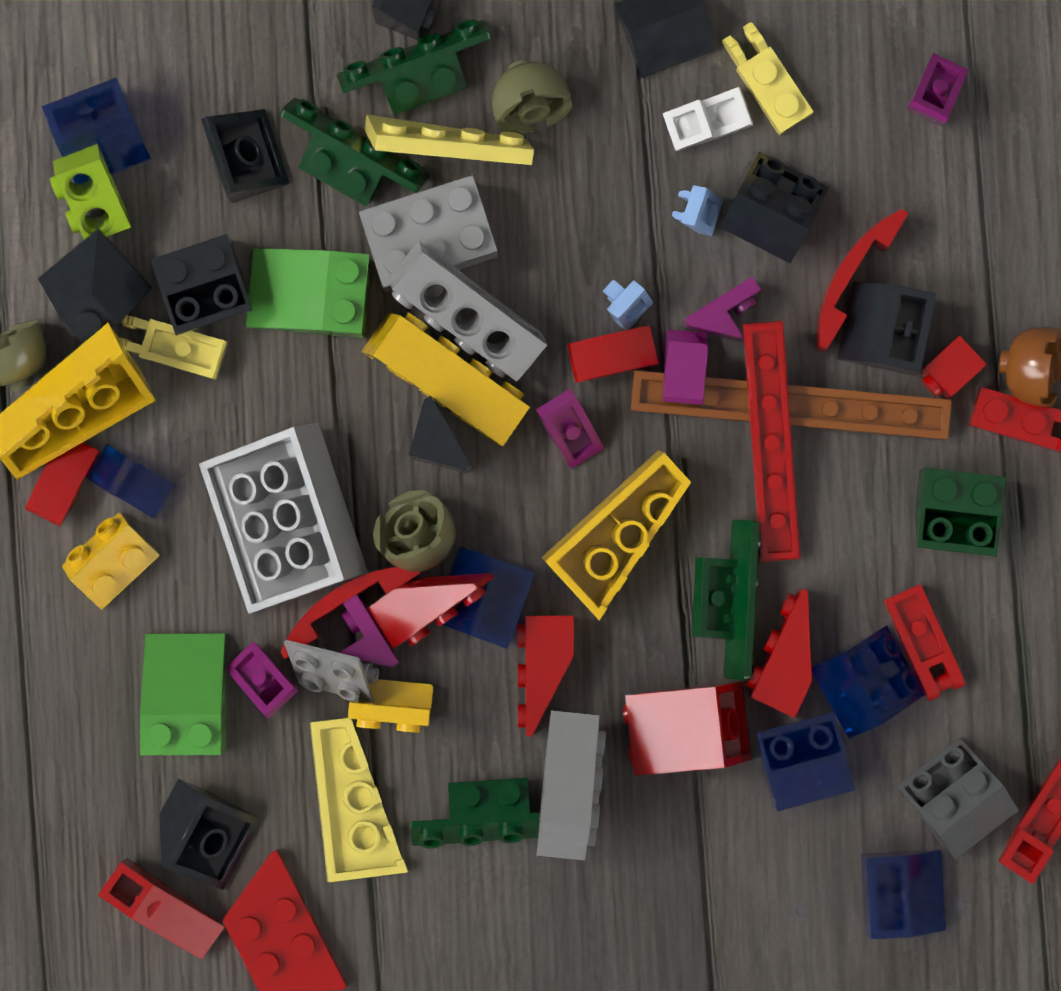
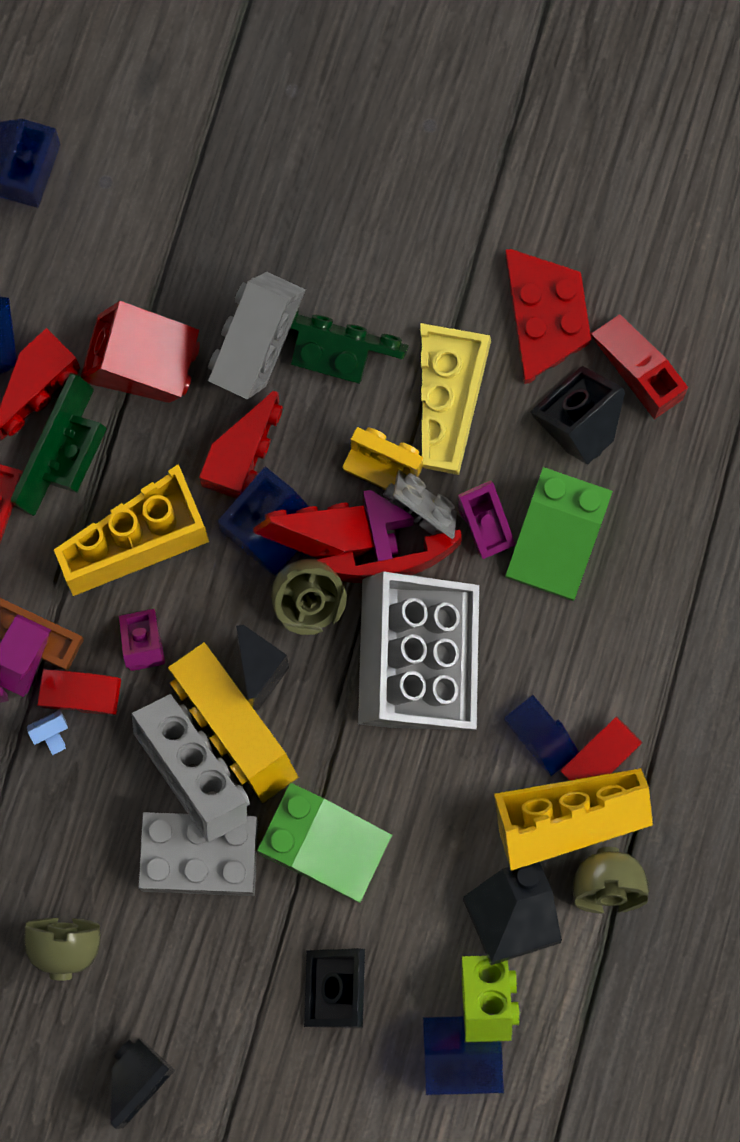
camera: 155 degrees left, 10 degrees down
(109, 560) = (584, 672): yellow bracket -> none
(186, 352) = (459, 836): light yellow hinge -> none
(202, 284) = (416, 880): black slope -> none
(347, 158) = (245, 951): dark green bracket -> none
(420, 71) = (151, 1009): dark green bracket -> none
(442, 141) = (165, 937): light yellow wing -> none
(804, 762) = (53, 289): clear blue slope -> none

